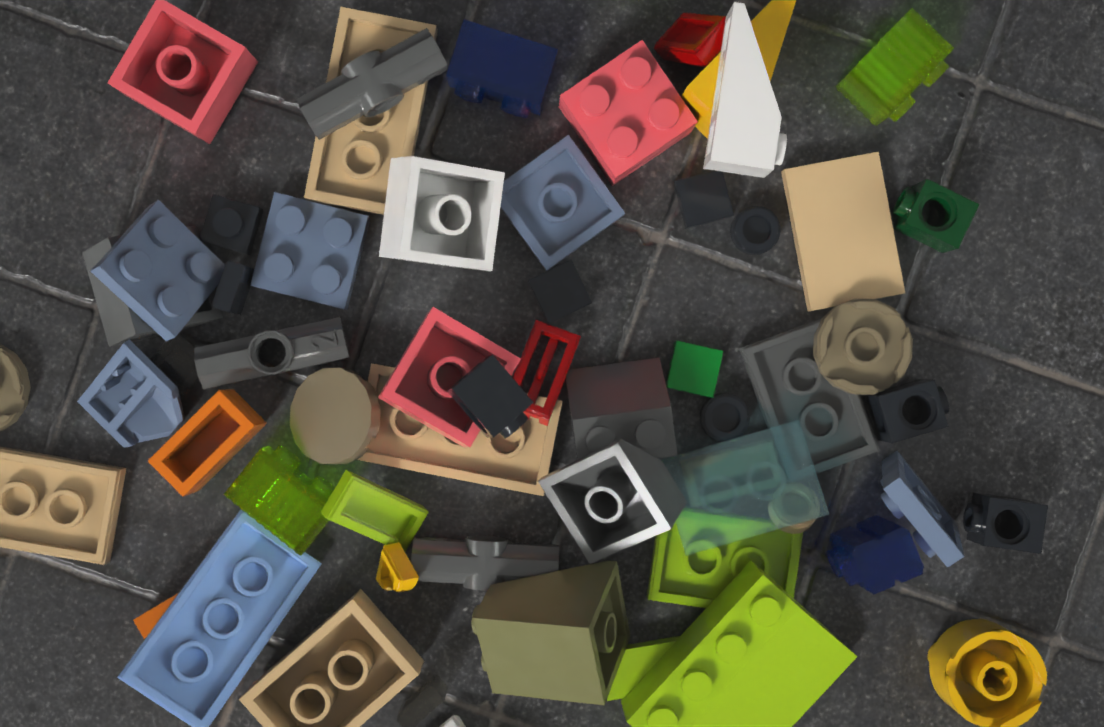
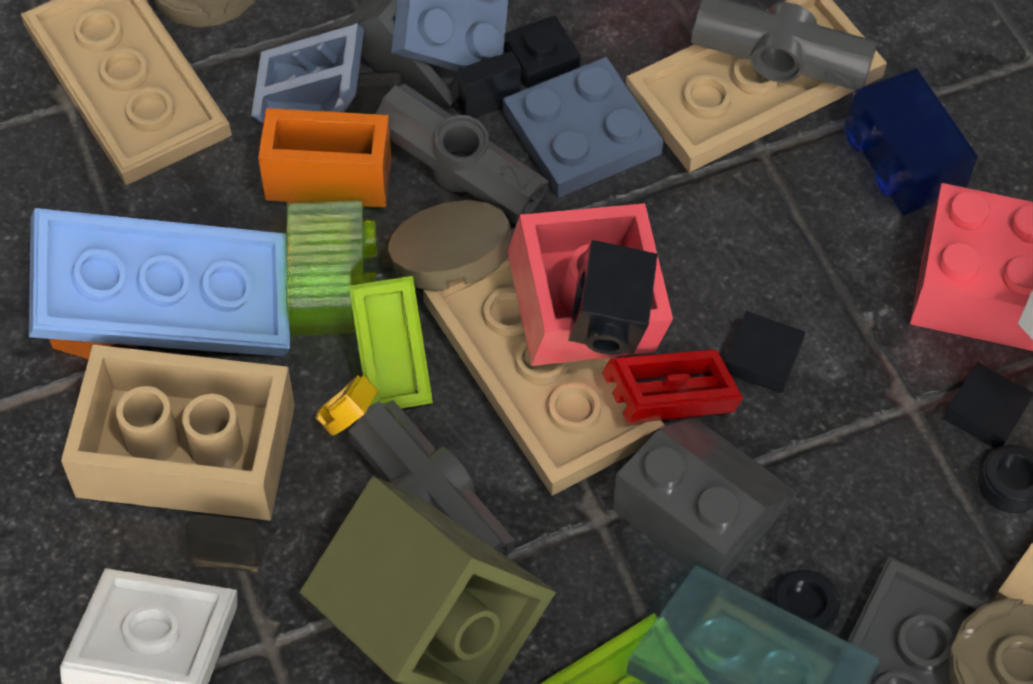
camera: 50 degrees right, 30 degrees down
(441, 213) = (731, 176): white brick -> none
(558, 203) = (844, 280): sand blue plate -> none
(614, 499) = (621, 527): dark grey slope -> none
(694, 369) = (821, 532): green tile -> none

